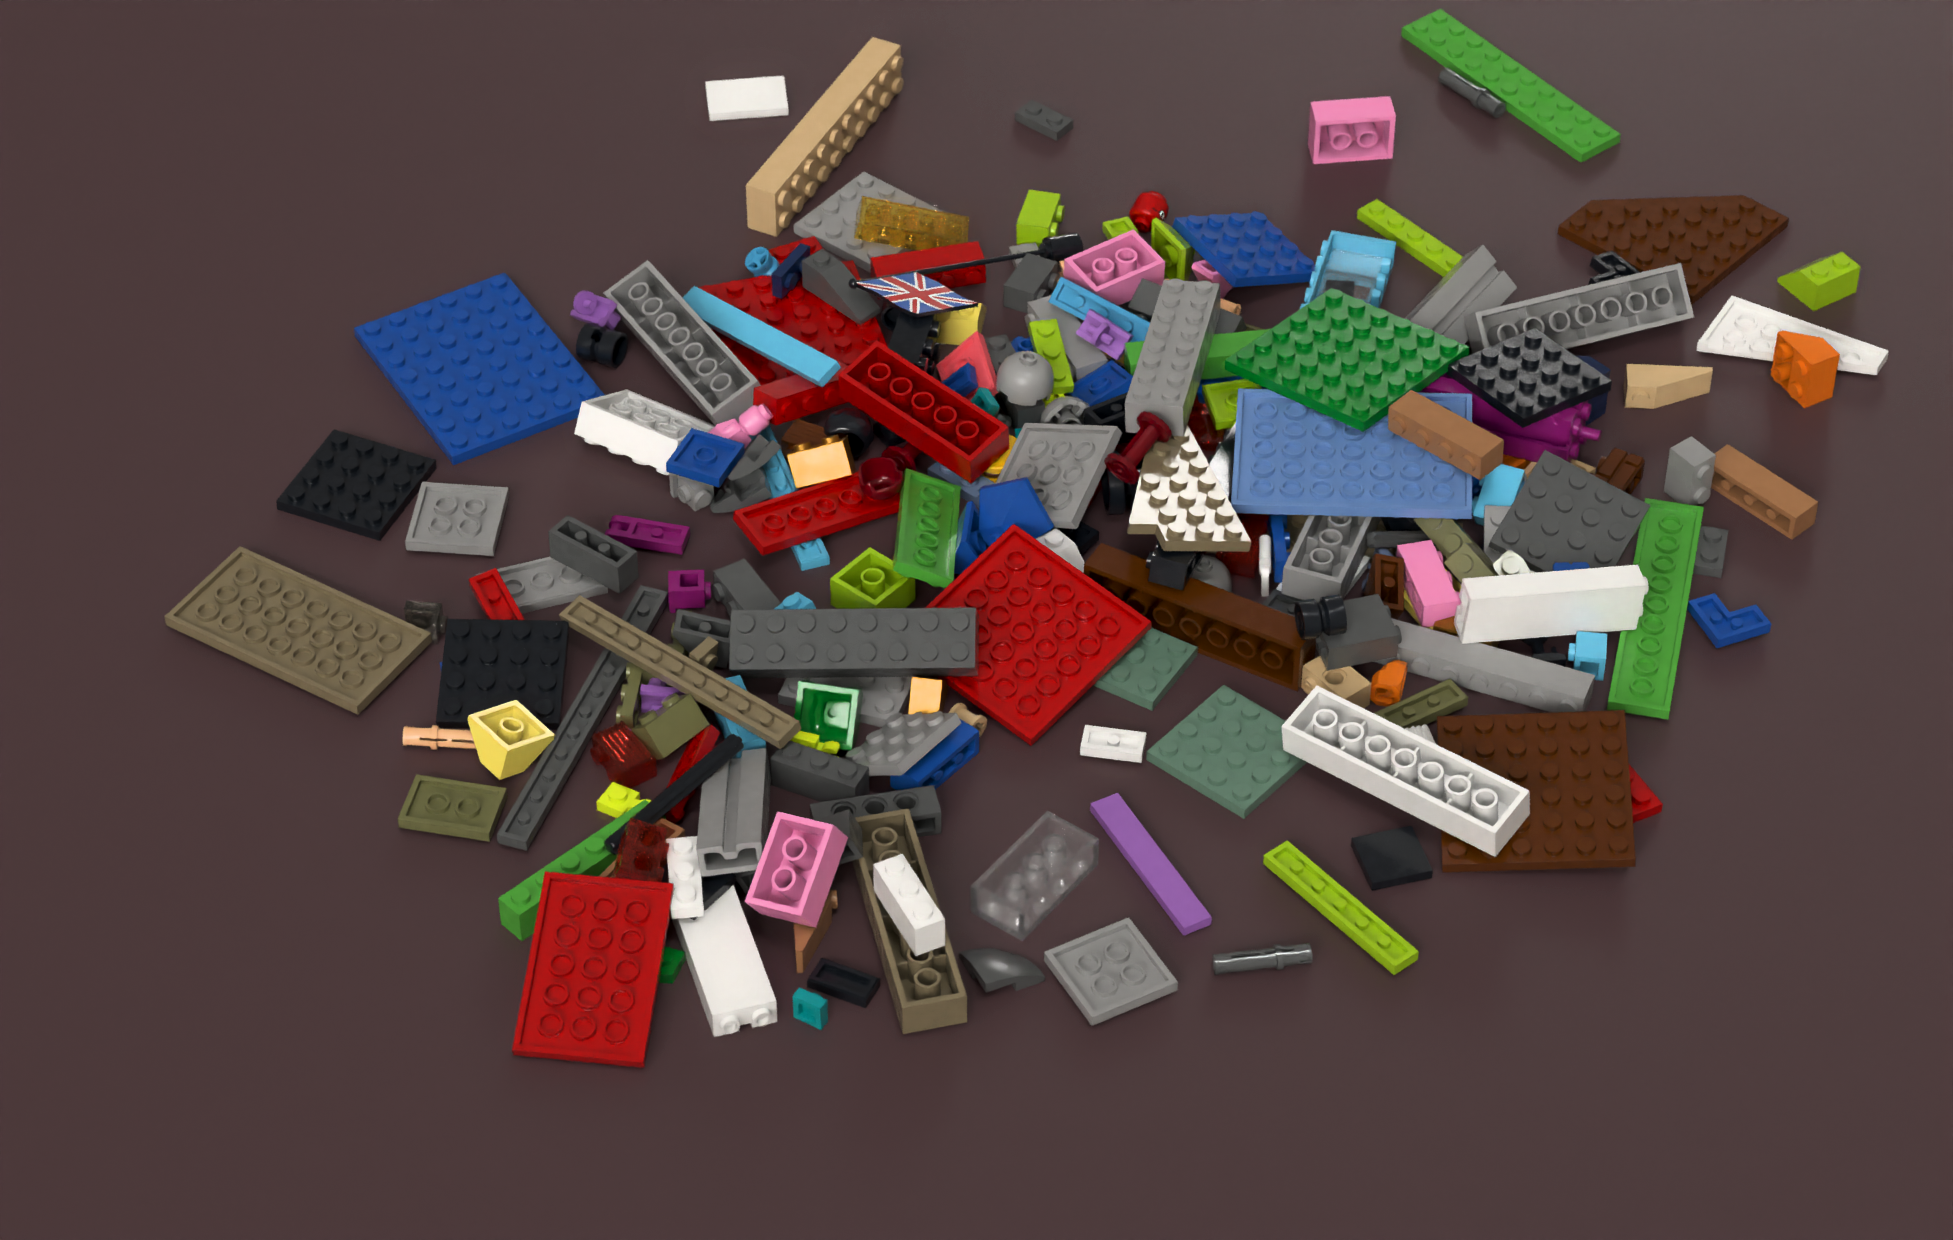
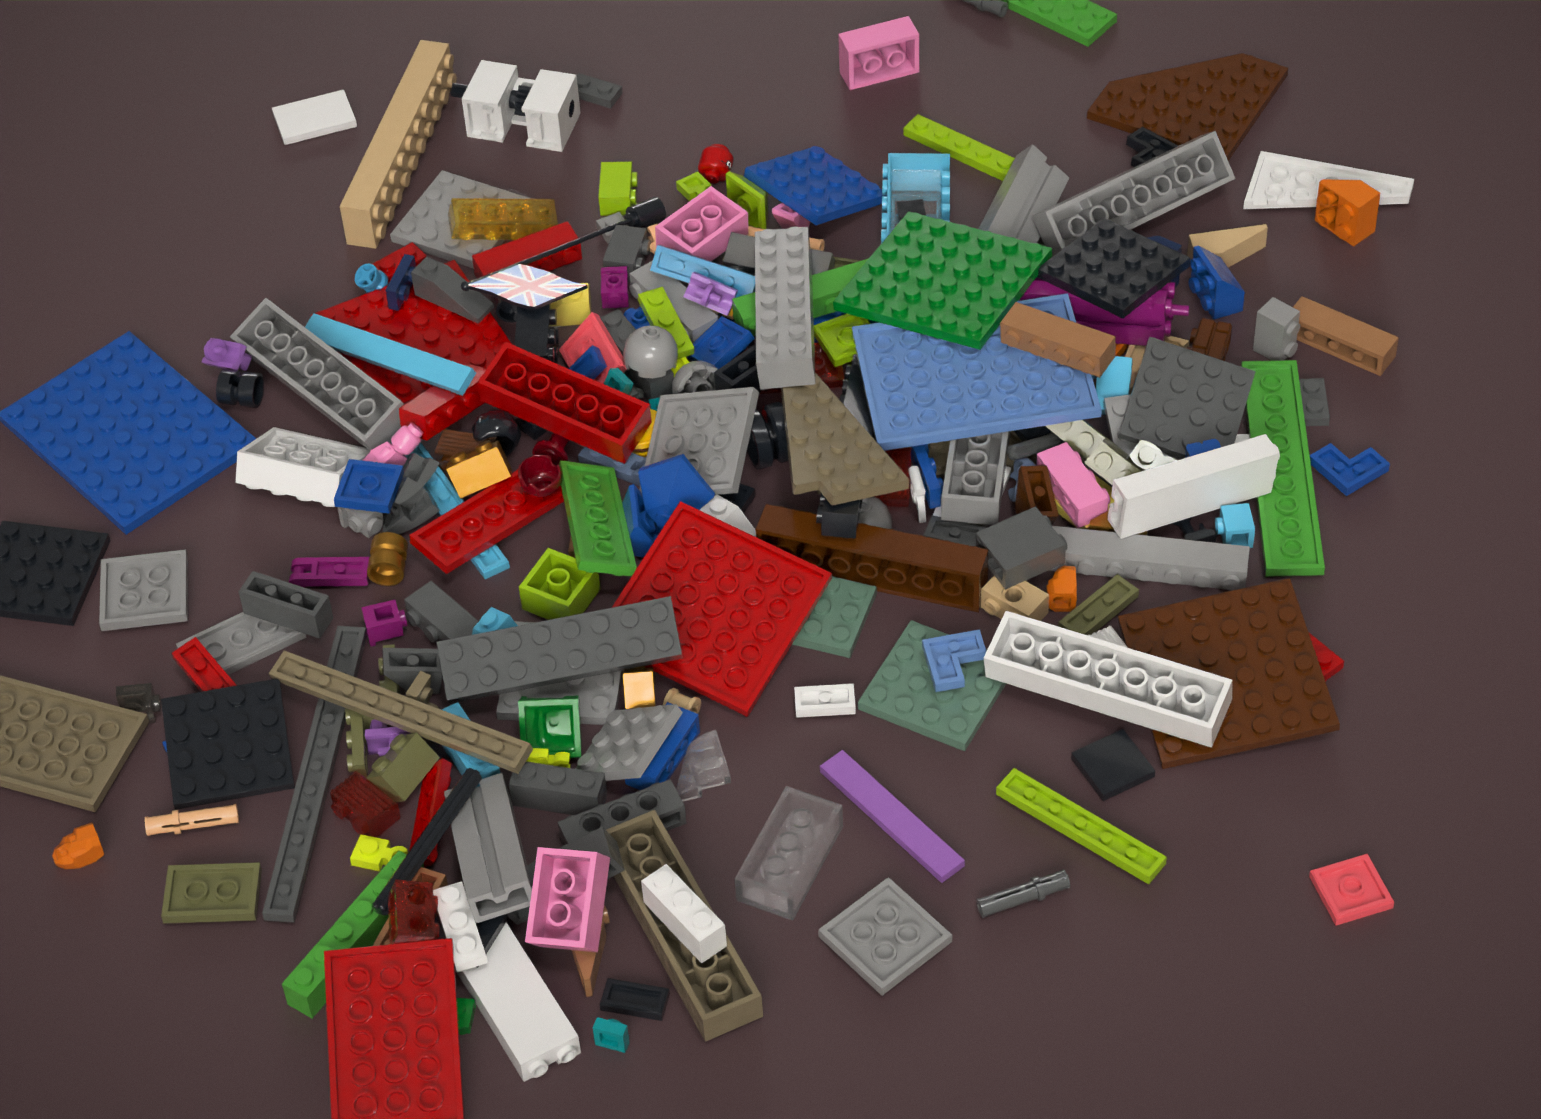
camera: 10 degrees left, 5 degrees up
(333, 744) = (78, 848): none -> orange rock
(508, 738) = (249, 810): light yellow slope -> none
(707, 531) = (387, 559): none -> pearl gold wheel
(941, 110) = (500, 99): none -> white piece
(971, 783) = (703, 767): none -> clear slope
(1000, 968) = (779, 954): dark grey brick -> none
(1010, 314) = (614, 287): none -> magenta brick
(1151, 430) = (786, 386): dark red hose -> none
(1249, 719) = (947, 653): none -> medium blue plate
(1320, 617) = (995, 541): black wheel -> none
(1602, 1019) = (1351, 889): none -> coral tile
(1639, 417) = (1215, 284): none -> blue slope
(1823, 280) = (1335, 121): lime slope -> none

